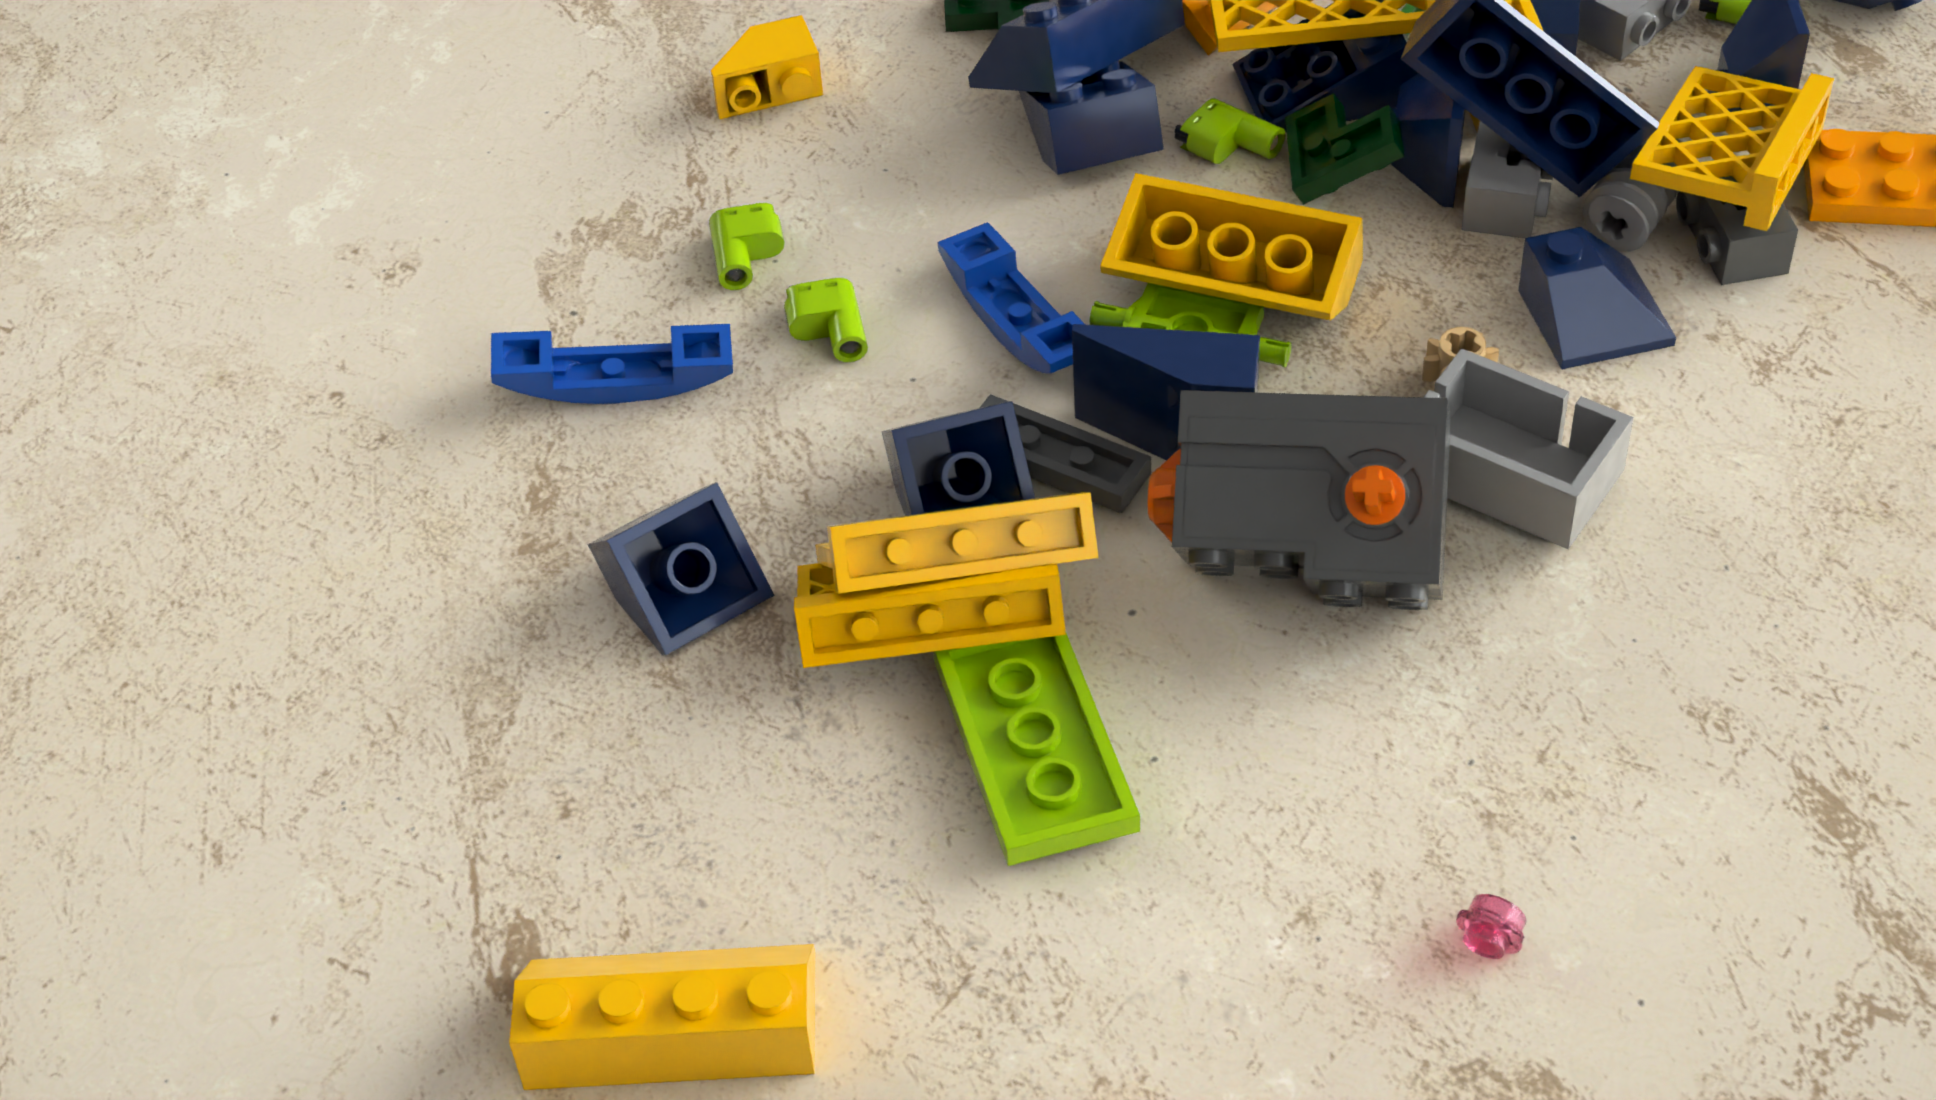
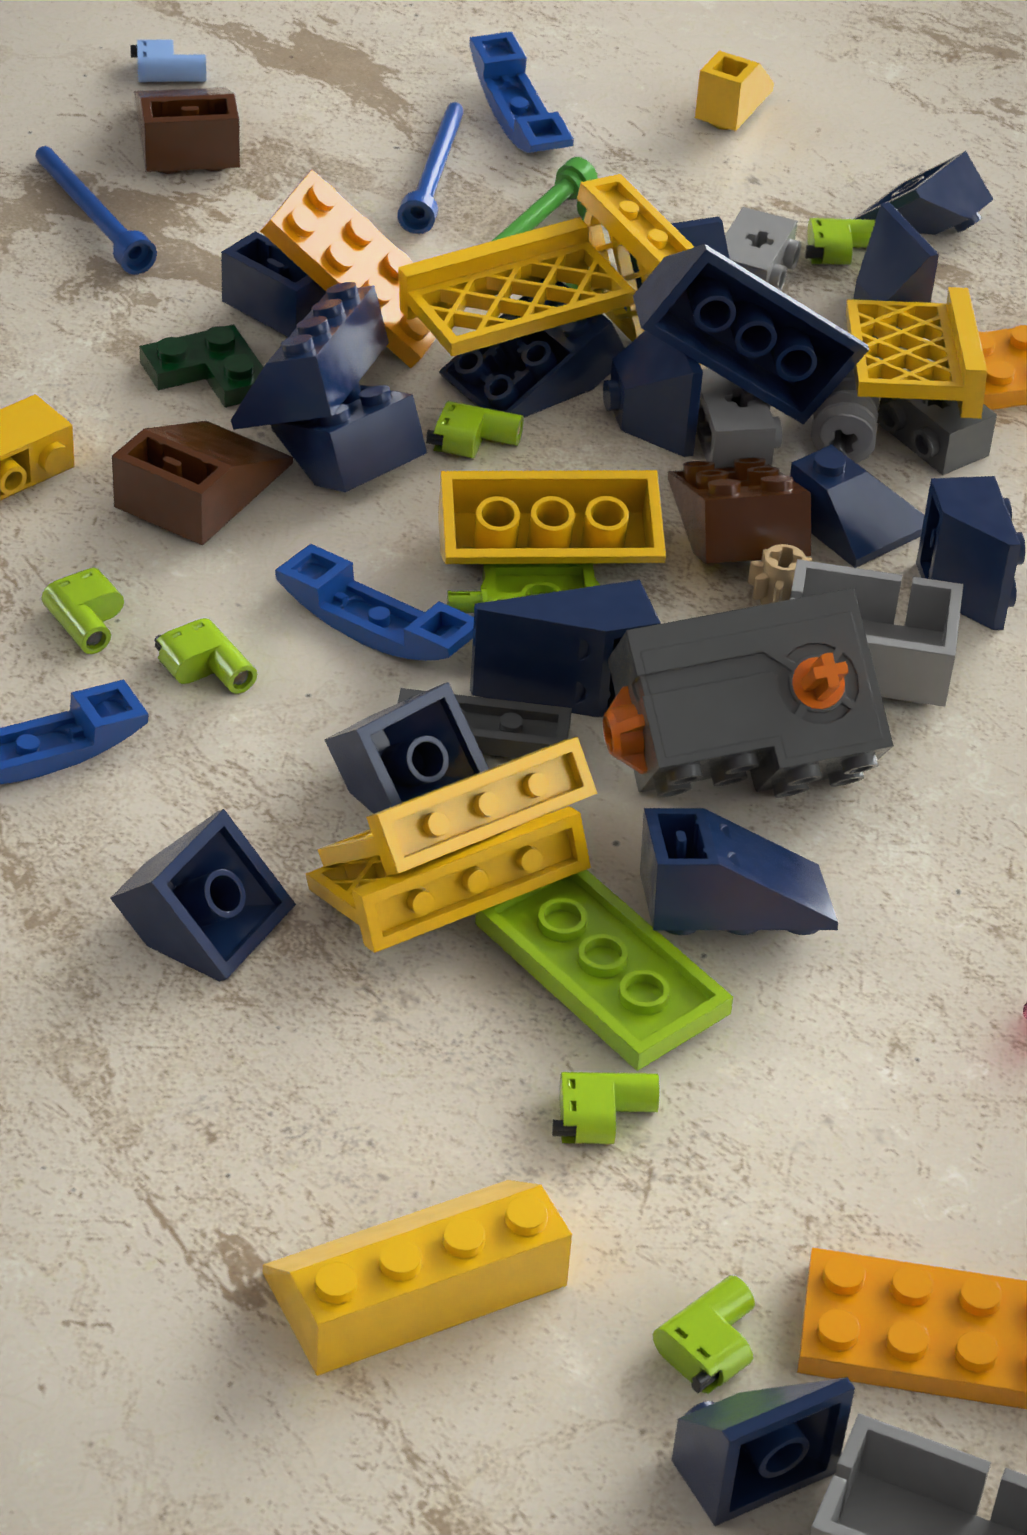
camera: 30 degrees left, 5 degrees down
(916, 126) = (192, 476): none -> reddish brown slope
(939, 885) = (592, 1100): none -> lime piece
(1203, 682) = (724, 877): none -> dark blue slope
(1331, 153) = (582, 432): dark green plate -> none
(1456, 278) = (740, 509): none -> reddish brown slope
(1677, 375) = (972, 543): none -> dark blue slope

